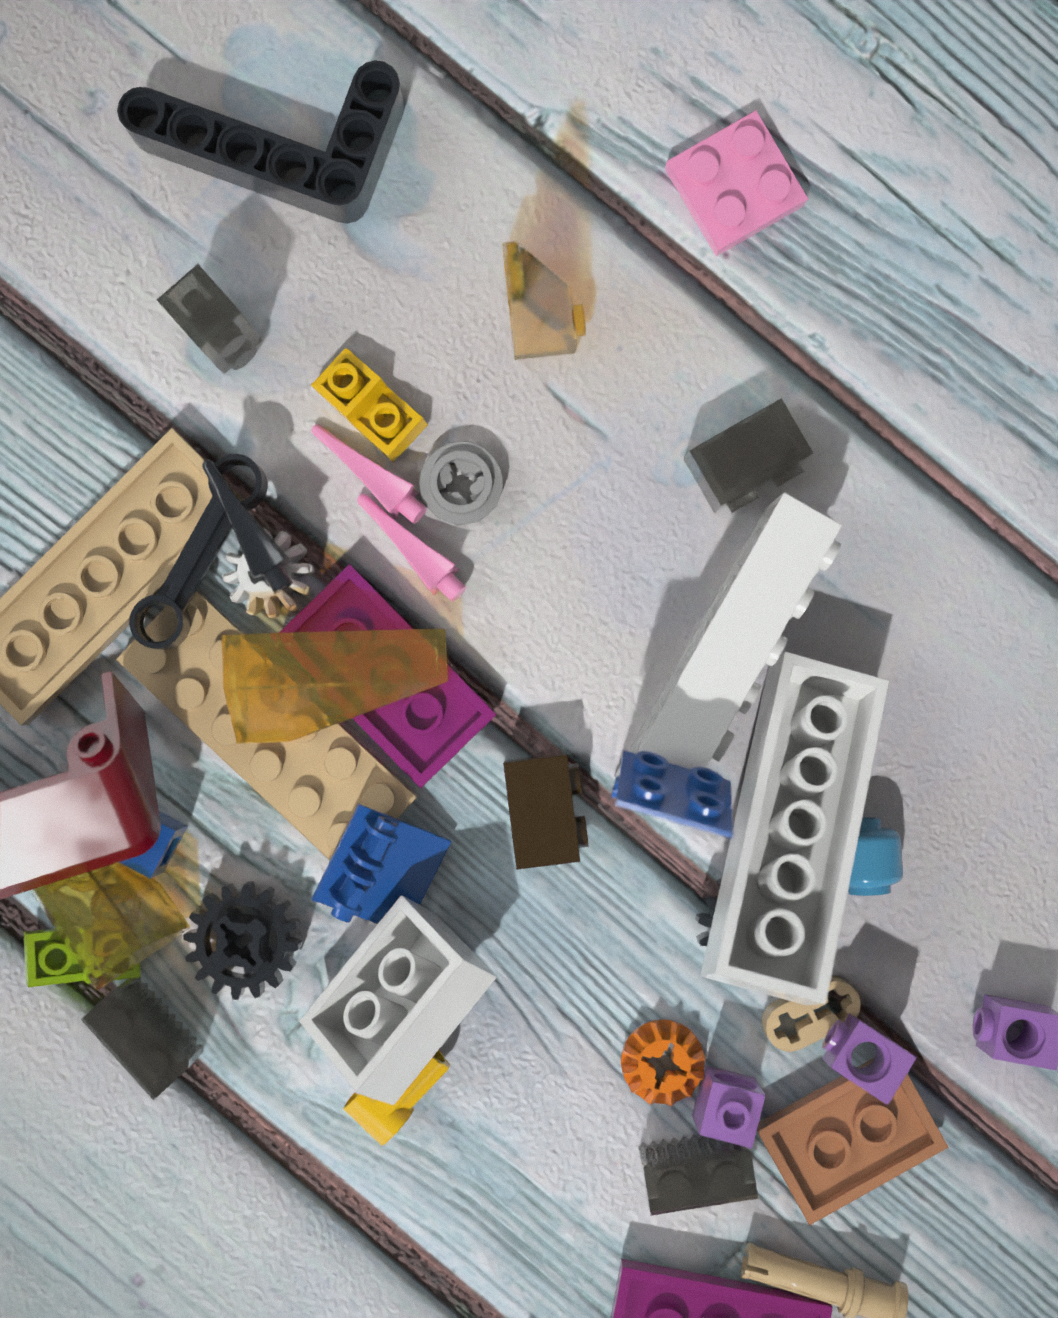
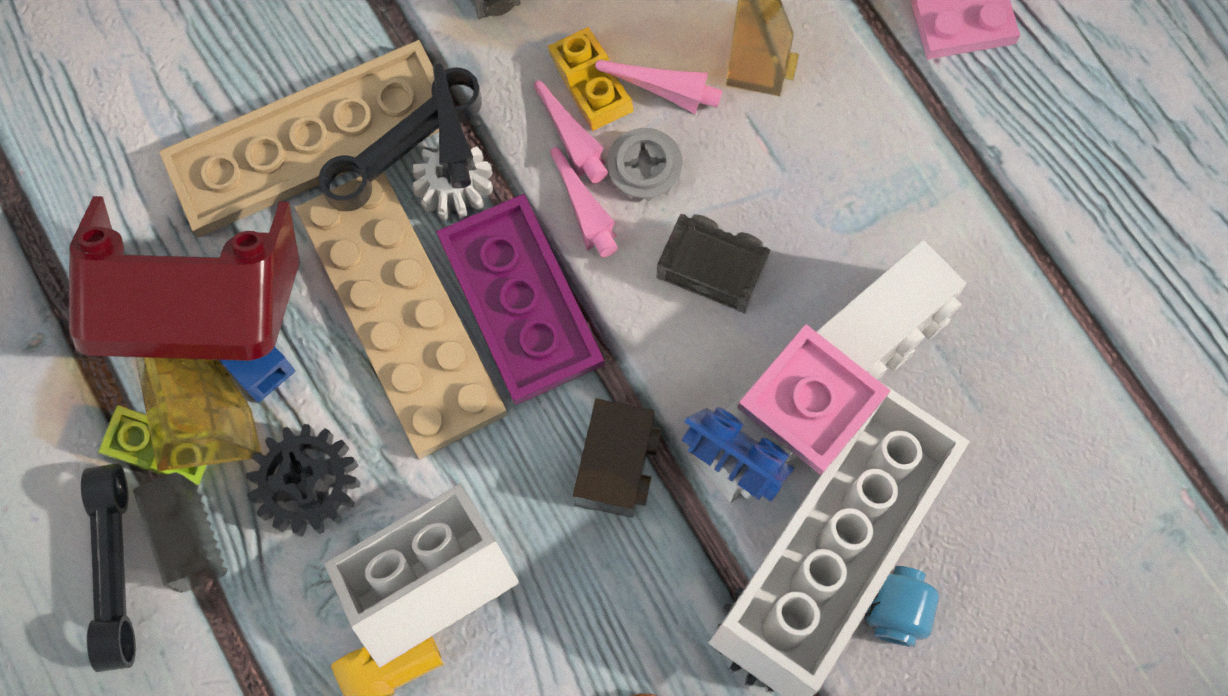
camera: 20 degrees right, 15 degrees down
(119, 1152) = (111, 633): none -> black piece
(309, 681) = (452, 269): clear yellow wedge -> none
(378, 864) = (451, 449): blue hinge -> none
(472, 385) = (679, 87): none -> bright pink piece
(570, 569) = (713, 262): none -> clear smoke brick
(728, 709) = (813, 399): none -> bright pink plate
(749, 456) = (898, 217): clear smoke brick -> none

